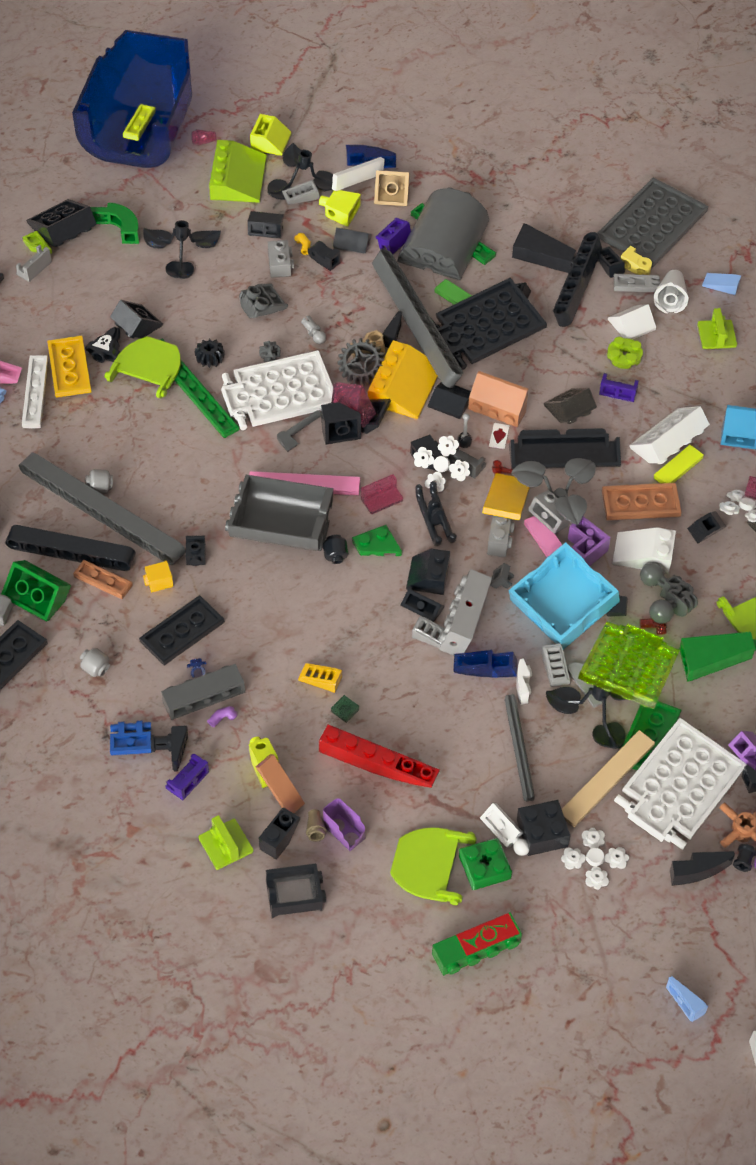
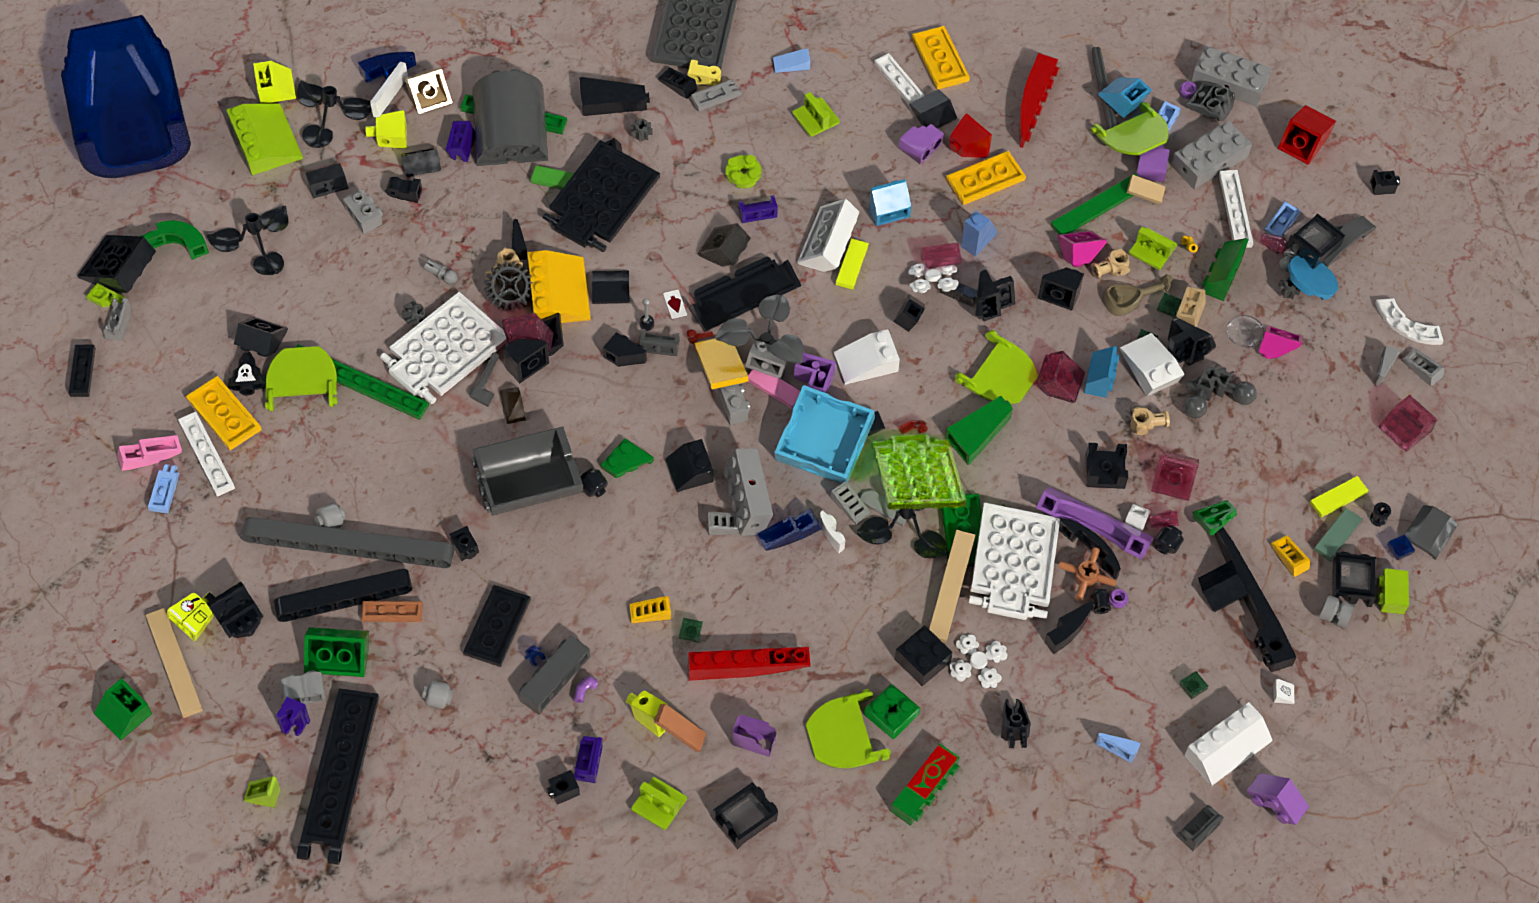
camera: 30 degrees left, 5 degrees up
(130, 743) = (516, 754): blue plate -> none
(139, 122) = (132, 121): neon yellow tile -> none
(154, 796) = (566, 779): none -> black brick
(158, 576) = (445, 585): yellow brick -> none
(160, 742) = (545, 740): black bush -> none
(179, 738) = (560, 731): black slope -> none
(202, 137) = (204, 110): clear pink cone -> none
(209, 353) = (354, 339): black gear -> none
(261, 300) = (372, 263): dark grey slope -> none
(278, 833) = (702, 771): black slope -> none
(306, 243) = (377, 183): yellow arm -> none
(308, 189) = (345, 121): light grey slope -> none
(308, 459) = (513, 405): none -> dark brown slope
(315, 826) = (728, 749): dark tan cone -> none
(342, 484) = (553, 419): bright pink tile -> none
(381, 494) = (602, 411): clear pink panel -> none
(417, 318) = (534, 218): dark grey beam -> none
(421, 605) = (701, 501): black slope -> none
(434, 514) = (663, 409): black piece -> none
(442, 463) = (643, 356): white plant -> none
(498, 399) = (658, 269): slope -> none
(501, 575) = (757, 439): dark grey tile -> none
(505, 829) = (892, 672): white plate -> none
(519, 748) = (861, 593): dark grey axle -> none
(553, 285) = (641, 130): none -> dark grey gear
(577, 279) = (661, 114): black beam -> none
(593, 930) = (1015, 724): none -> black hinge
(633, 321) = (733, 135): white slope -> none
(641, 501) = (838, 313): nougat plate -> none
(671, 293) = (755, 92): white cone -> none
(675, 591) = (918, 409): dark grey piece -> none
(725, 1117) = (1200, 827): none -> dark grey hinge

